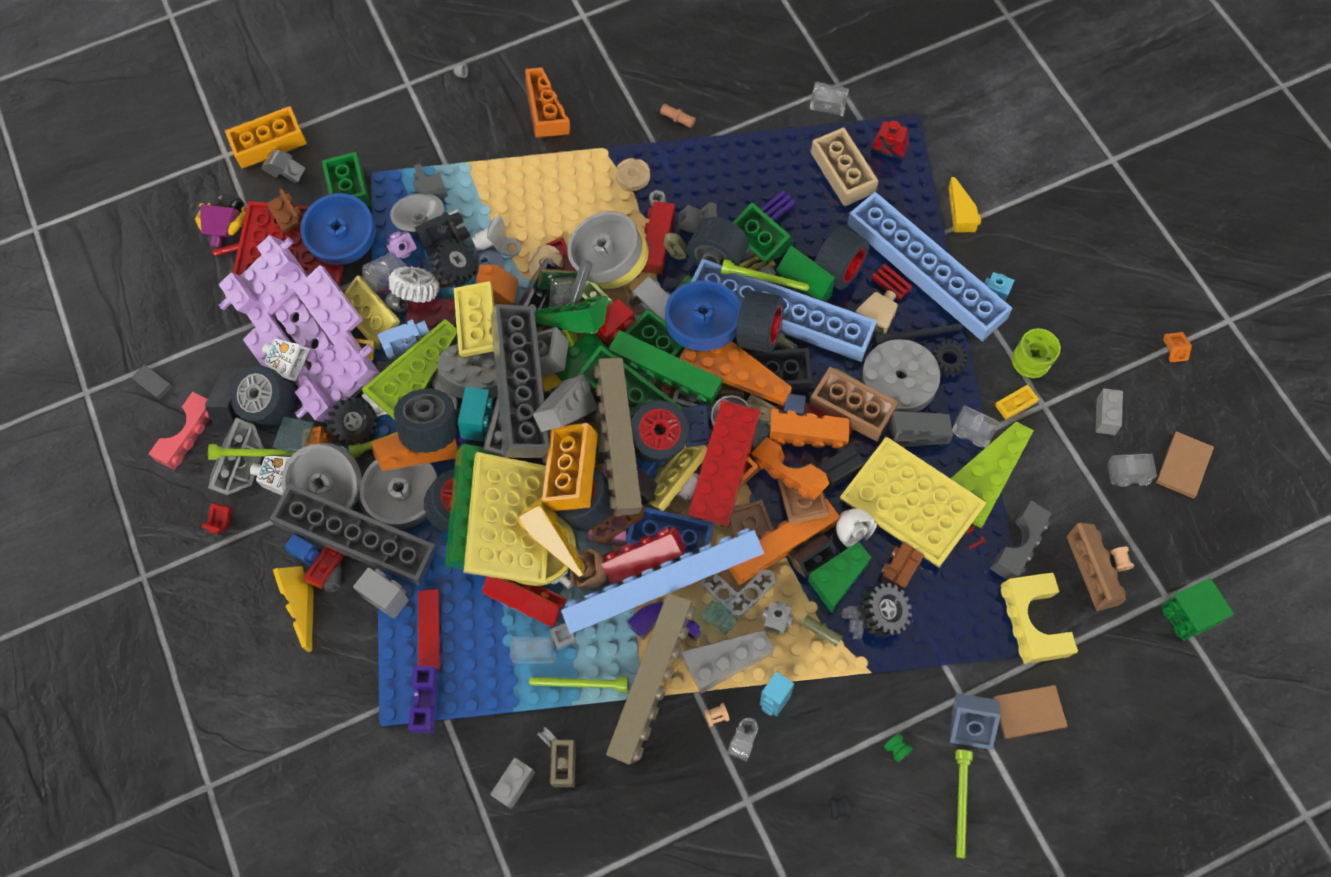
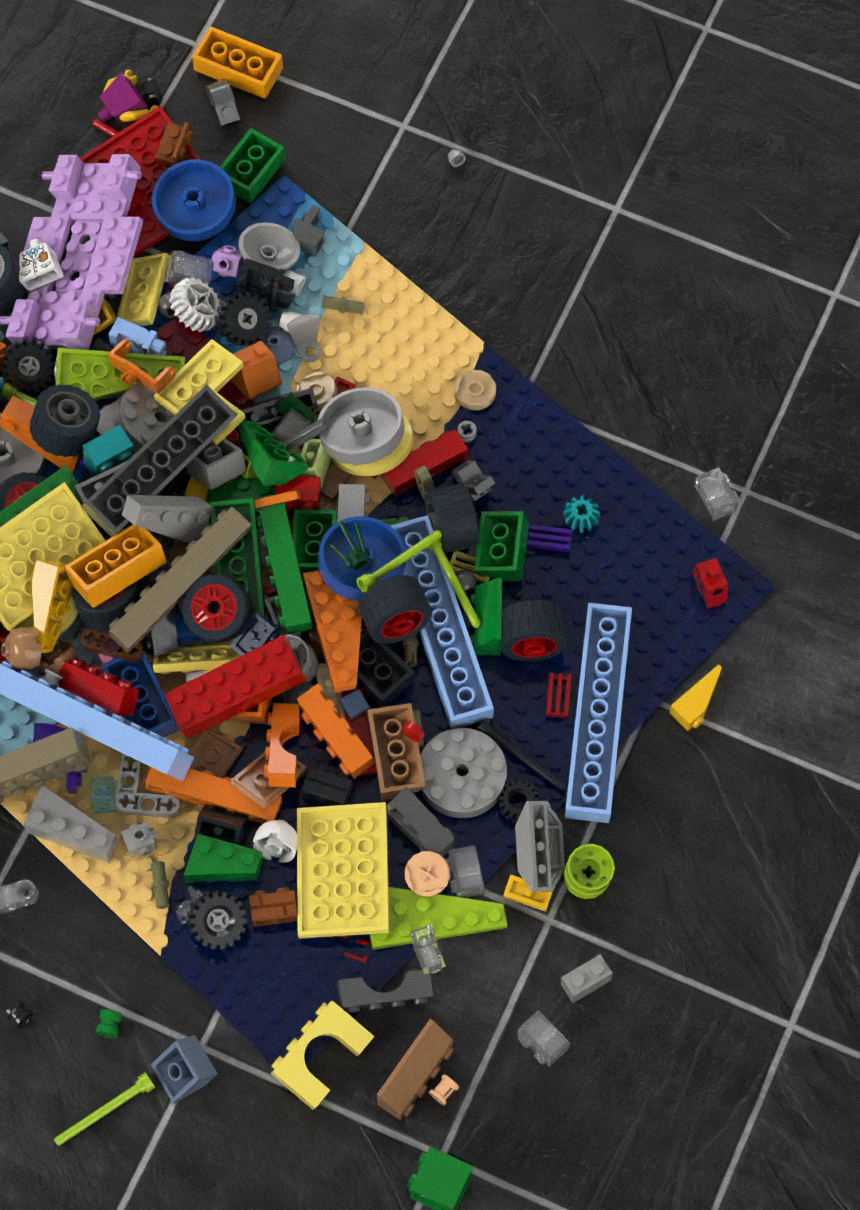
camera: 45 degrees right, 0 degrees up
(432, 352) = (134, 373): none -> orange piece
(499, 203) = (343, 305): none -> olive pin
(545, 108) = (475, 261): orange wedge -> none
(569, 582) = (22, 649): none -> medium nougat cylinder
(607, 581) = (52, 677): none -> light grey bush
(613, 331) = (275, 499): none -> orange tile
(677, 115) = (576, 377): nougat pin -> none
(706, 313) = (357, 557): none -> dark green plant
(716, 714) = (18, 858): light nougat bush -> none
(729, 320) = (368, 580): none -> lime piece
(776, 694) = (67, 887): medium azure brick -> none
(777, 177) = (578, 520): none -> teal gear
(844, 166) = (642, 561): tan brick -> none
(855, 378) = (413, 731): none -> red tile
(880, 309) = (513, 706): tan torso -> none
(960, 449) = (427, 873): none -> light nougat tile
(993, 371) = (539, 846): none -> light grey wedge
(999, 285) = (634, 791): medium azure brick -> none
(1019, 488) = (428, 949): none -> clear brick
(1030, 712) = (232, 1110): medium nougat tile -> none
(1178, 346) = (714, 994): orange bracket -> none
(1184, 465) = (591, 1083): medium nougat tile -> none

